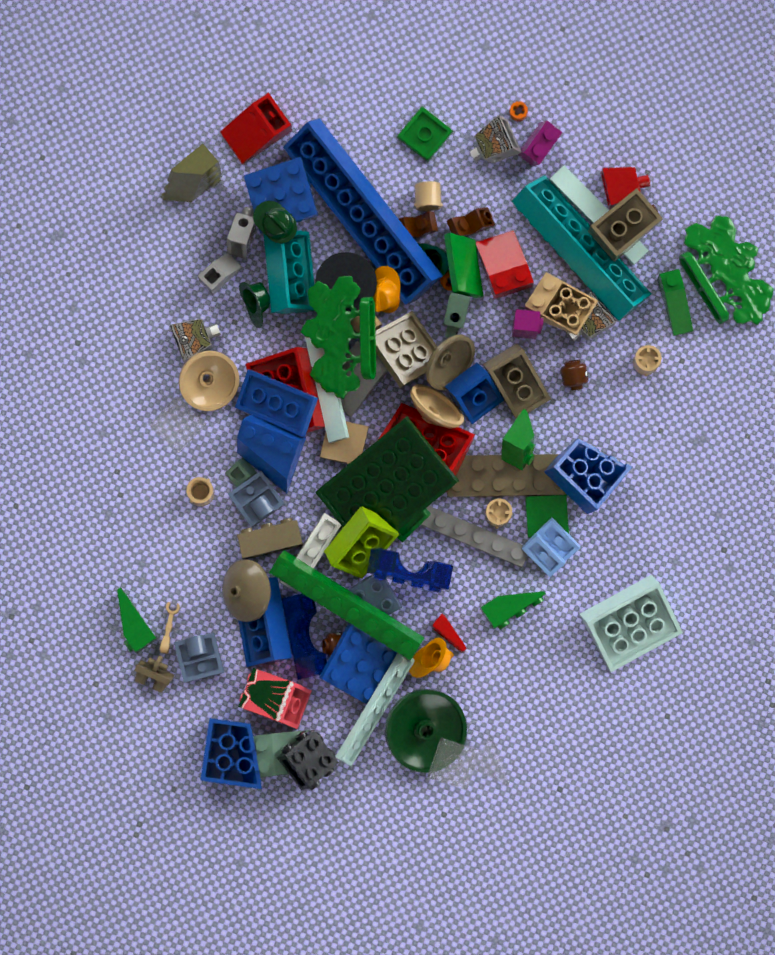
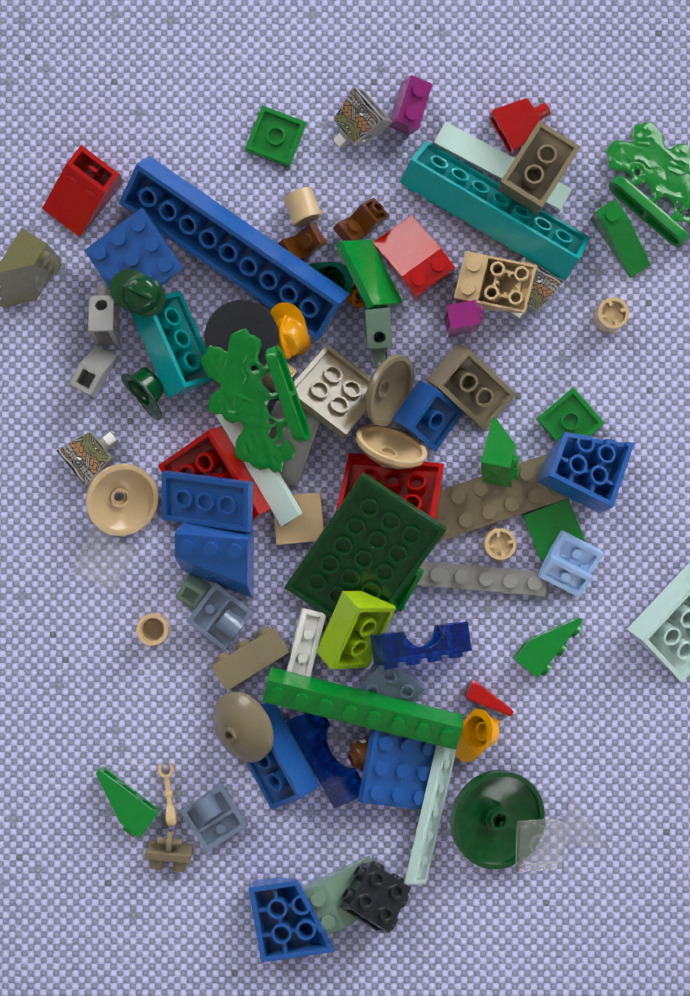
camera: 15 degrees left, 5 degrees up
(275, 698) = (314, 837): slope -> none
(516, 105) = (368, 71): orange bush -> none
(574, 374) = (534, 358): reddish brown head -> none
(589, 428) = (570, 415): none -> green plate

